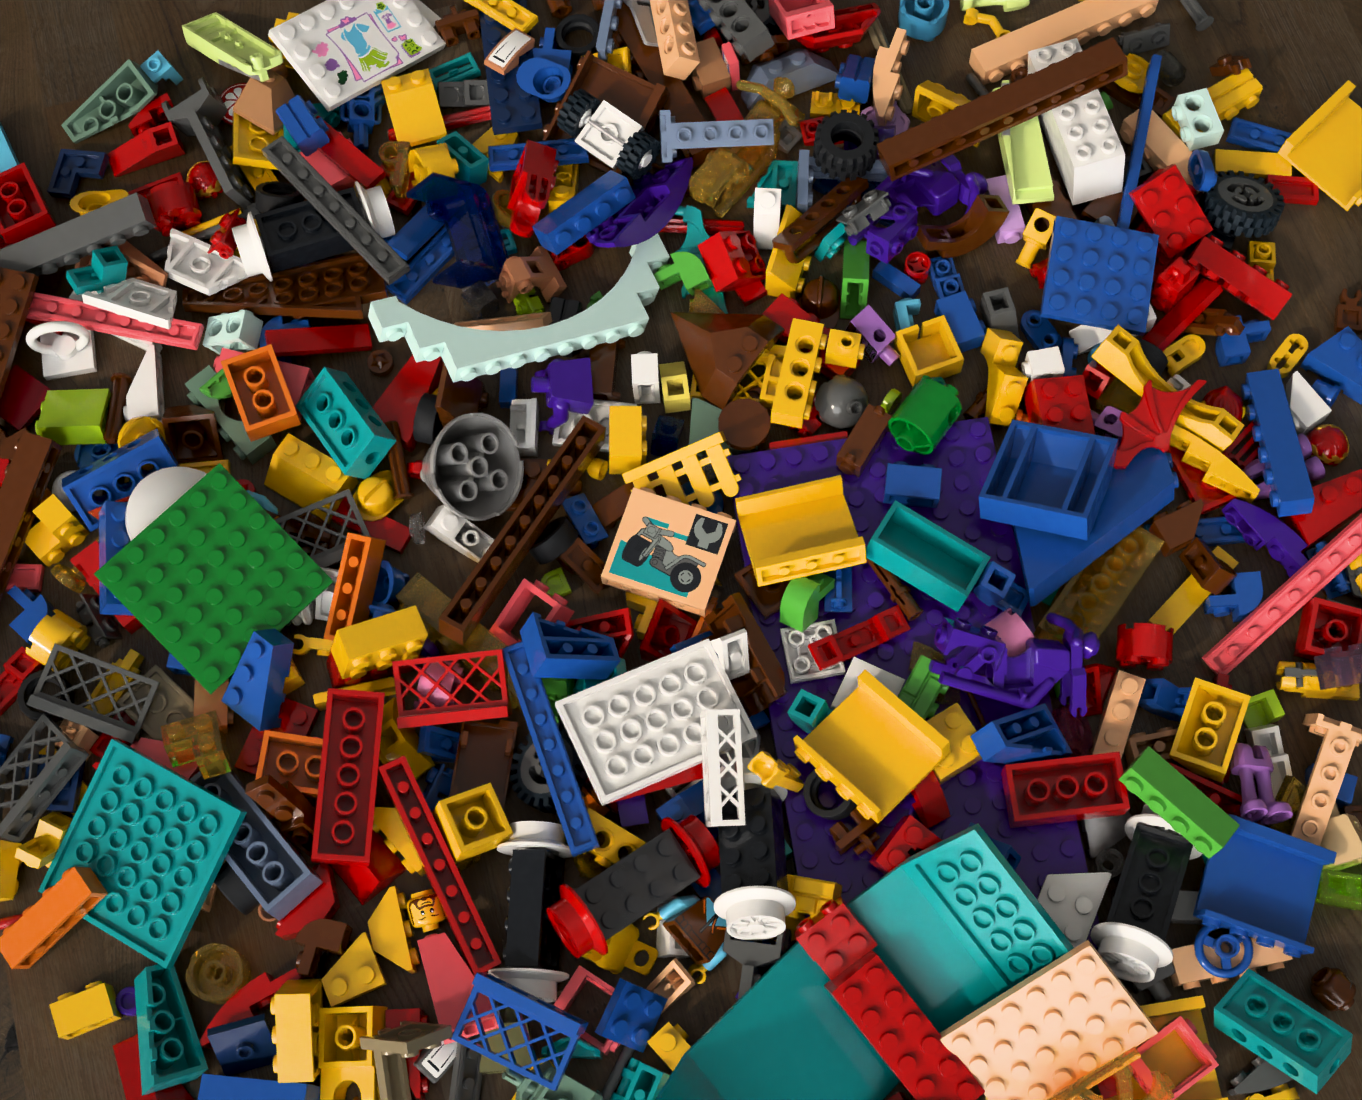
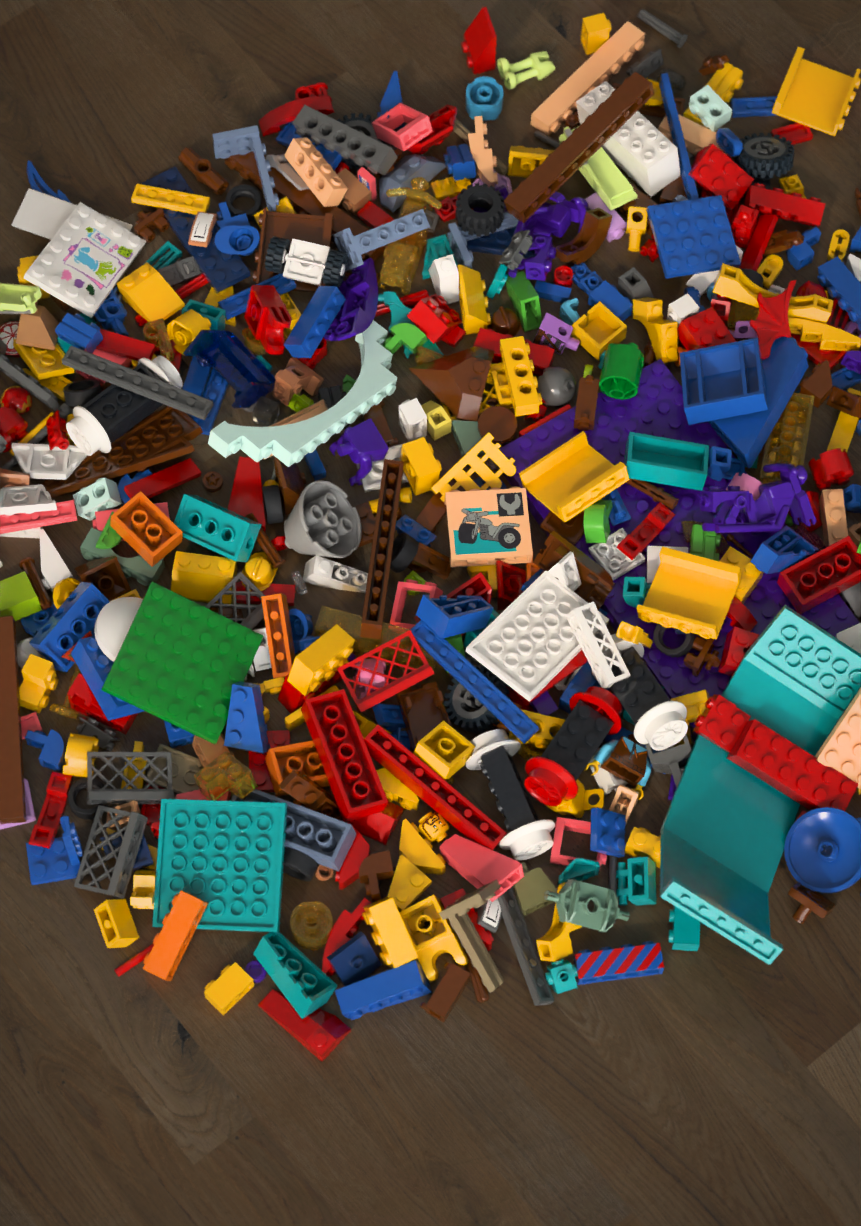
camera: 30 degrees left, 5 degrees down
(524, 1004) = (547, 845): blue fence -> none
(525, 425) = (339, 477): white hinge -> none
(666, 435) = (444, 453): bracket -> none
(789, 241) = (485, 276): reddish brown piece -> none
(844, 348) = (543, 348): yellow brick -> none
(912, 484) = (634, 418): blue brick -> none
(973, 16) = (519, 91): yellow arm -> none
(1039, 332) = (666, 291): blue plate -> none
(1251, 162) = (757, 125): yellow tile -> none

